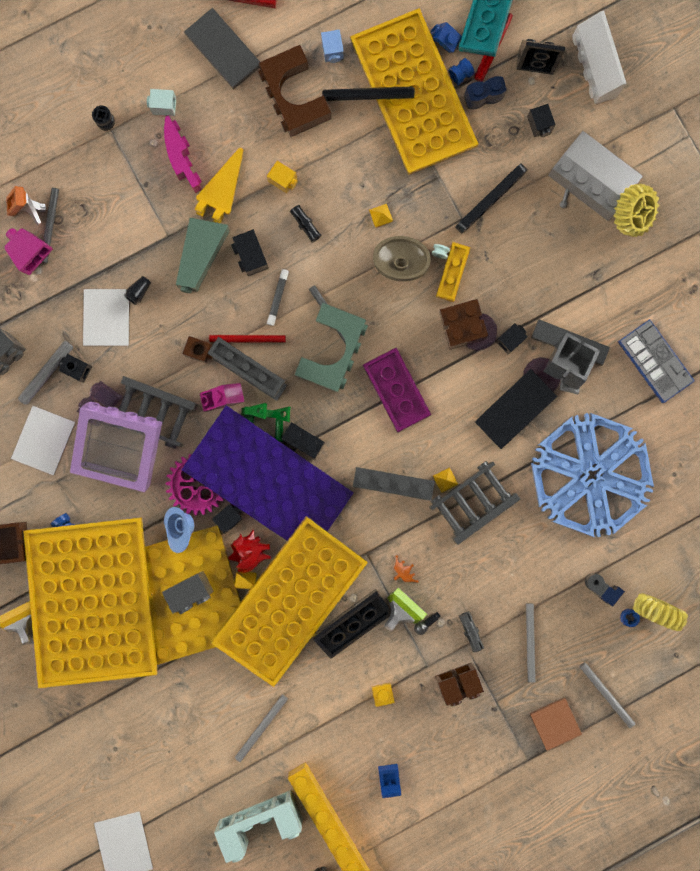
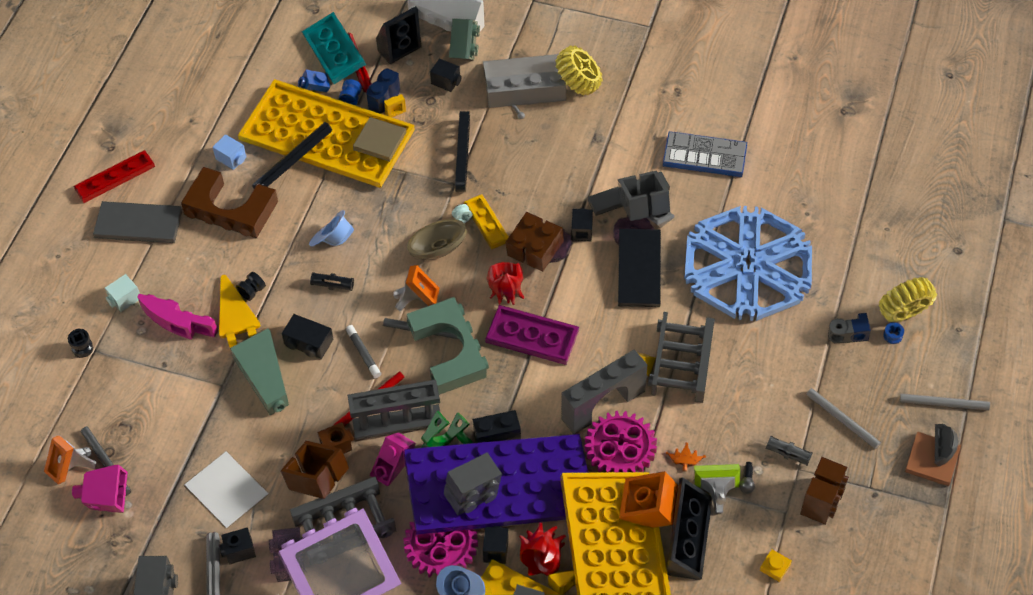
camera: 40 degrees left, 30 degrees down
(137, 290) = (236, 443): black cone -> none
(164, 366) = (320, 469): none -> reddish brown piece
(237, 478) = (472, 484): none -> dark grey piece
(249, 176) = (250, 286): none -> black wheel
(282, 177) = (279, 265): yellow brick -> none
(341, 183) = (335, 232): none -> light blue piece
(344, 585) = (649, 500): none -> orange slope
(353, 284) = (416, 286): none -> orange piece
(356, 536) = (623, 428): none -> dark pink gear
(381, 215) = (387, 231): yellow slope -> none
(414, 336) = (506, 280): none -> red hair
(441, 135) = (379, 139): none -> dark tan tile
(481, 113) = (395, 106): none -> yellow plate
(571, 727) = (945, 444): none -> dark grey plate
(582, 102) = (464, 39): none -> sand green slope

